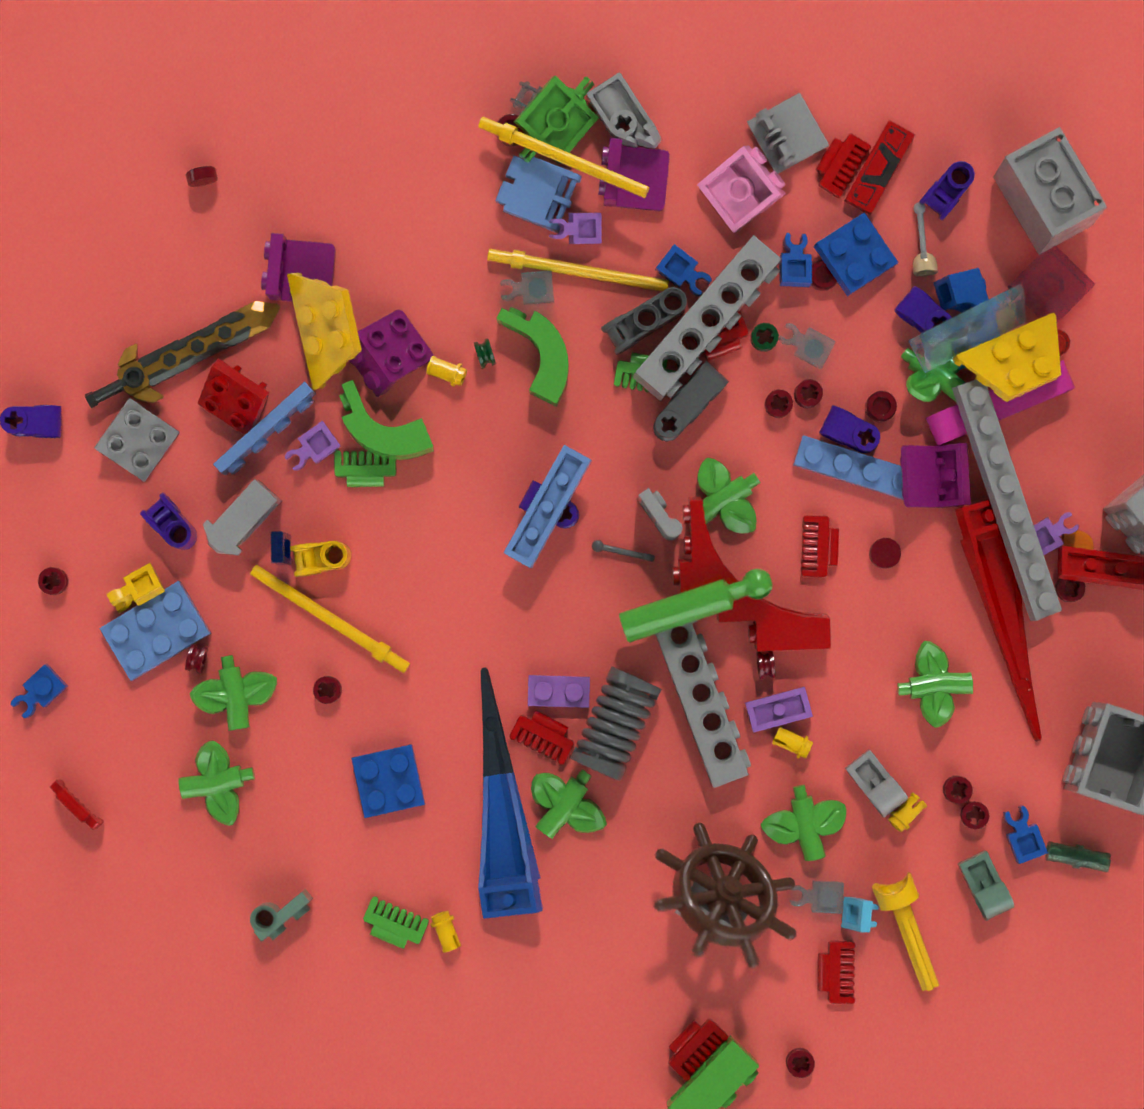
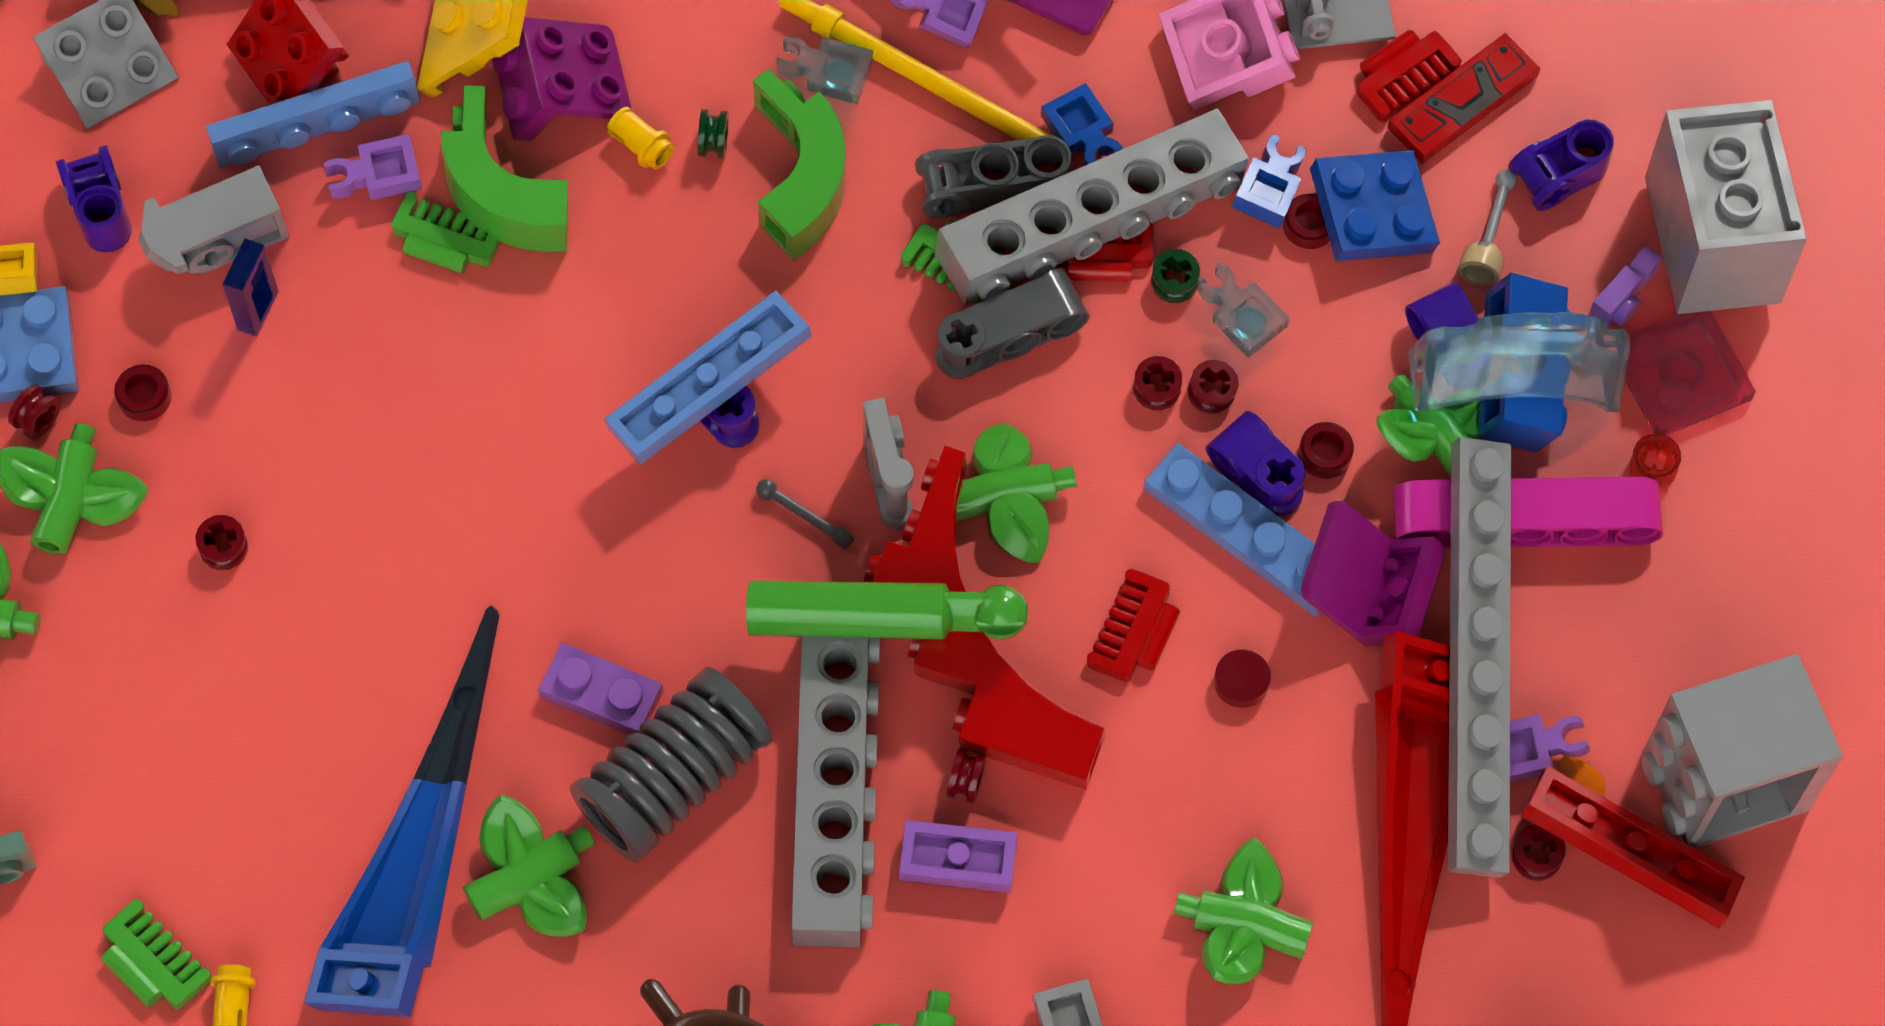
camera: 20 degrees right, 20 degrees down
(246, 622) = (143, 392): none -> dark red tile
(314, 557) = (297, 335): yellow piece -> none
(379, 651) = (334, 512): yellow bar -> none
(388, 781) = (252, 724): blue plate -> none
(545, 728) = (551, 740): red piece -> none
(792, 742) = (960, 920): yellow pin -> none
(1005, 260) = (1618, 299): none -> medium lavender plate
(1017, 359) = (1575, 439): yellow wing -> none

